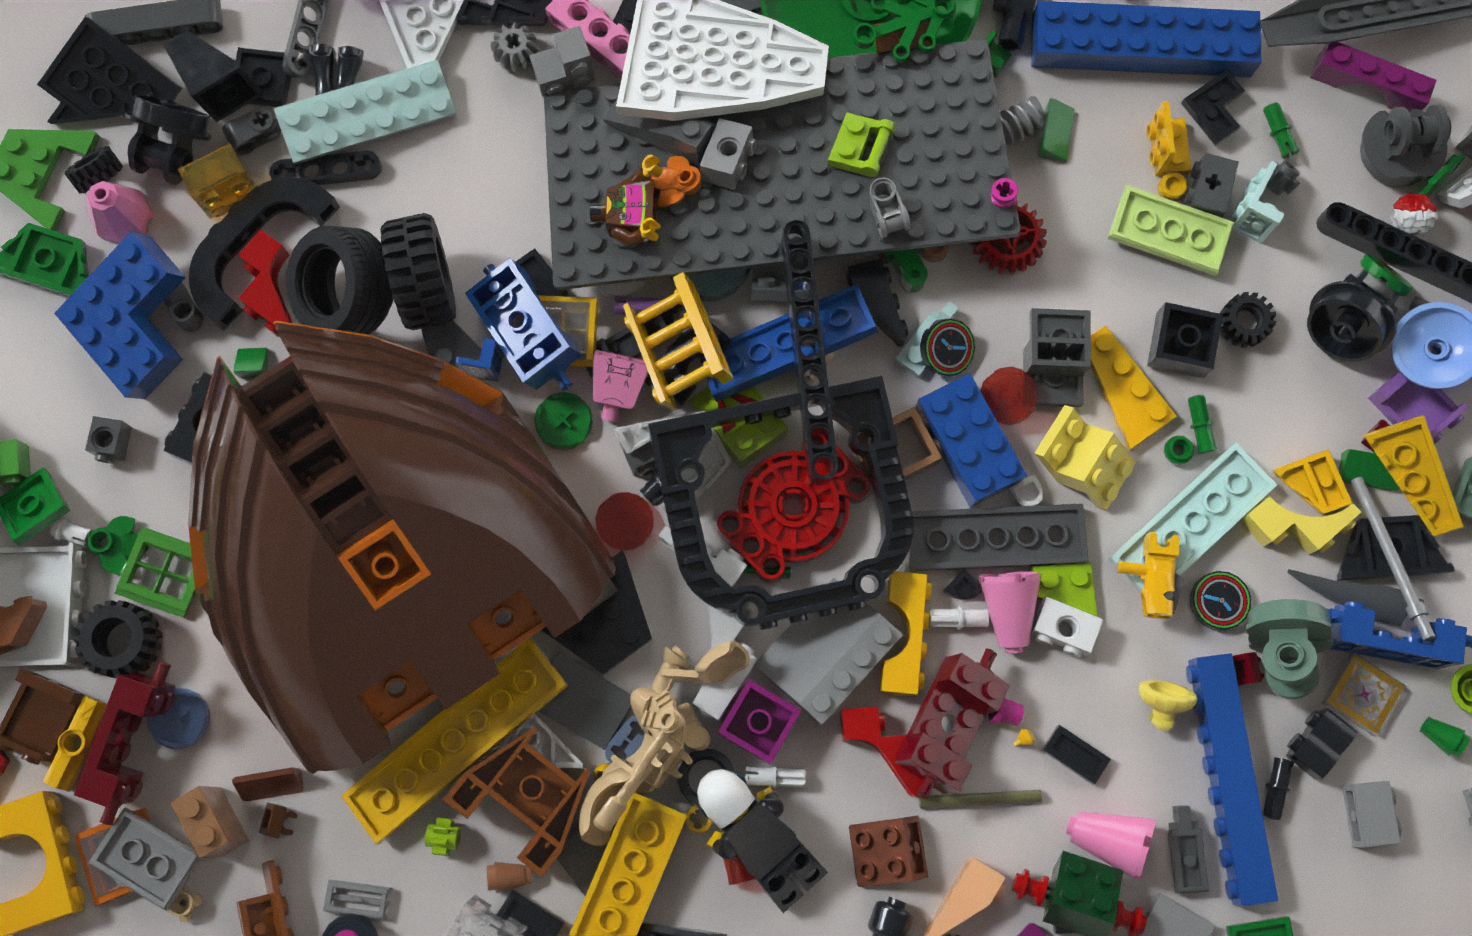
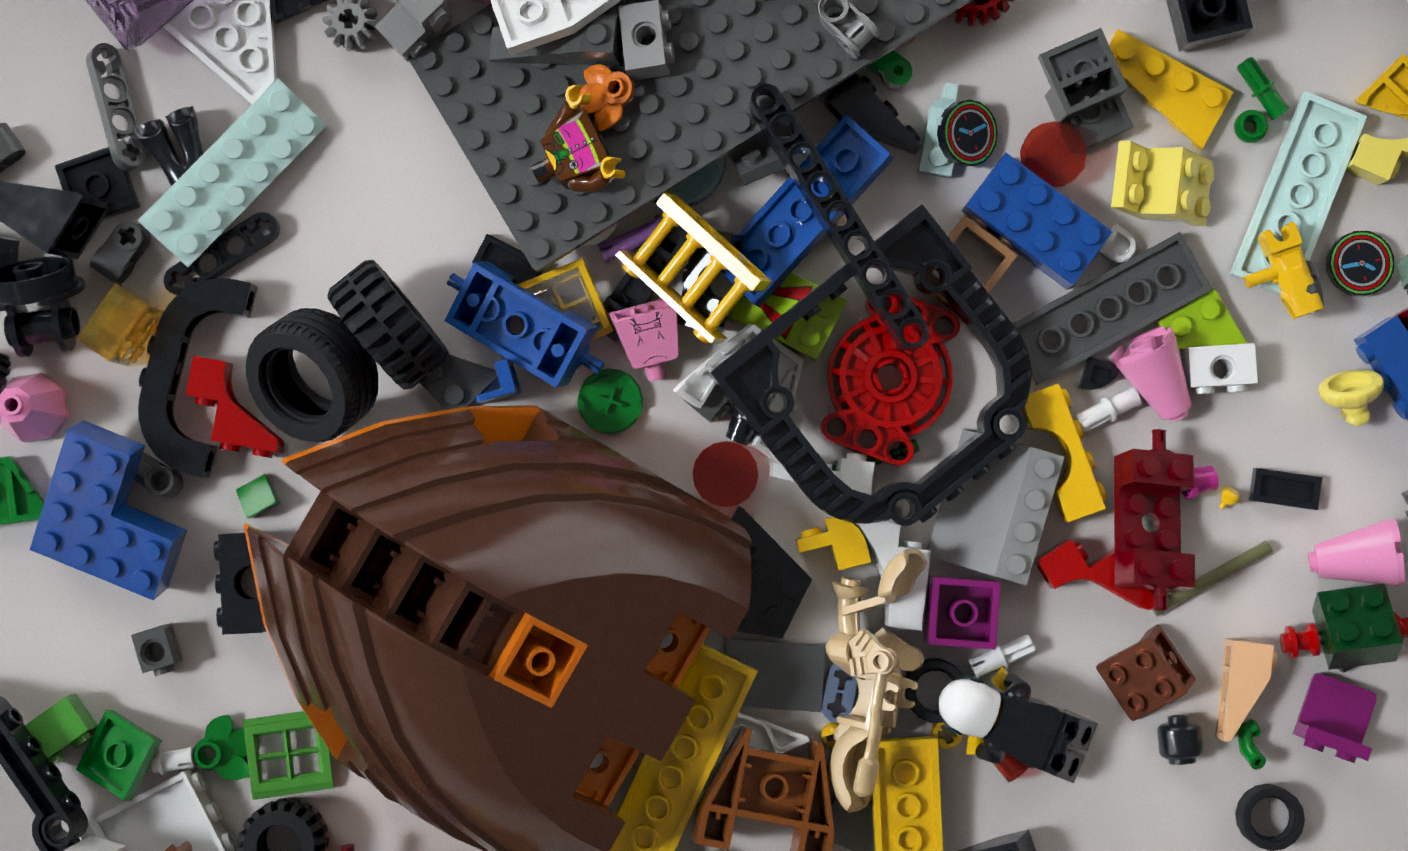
camera: 25 degrees left, 10 degrees up
(692, 616) = (845, 539): none -> yellow brick

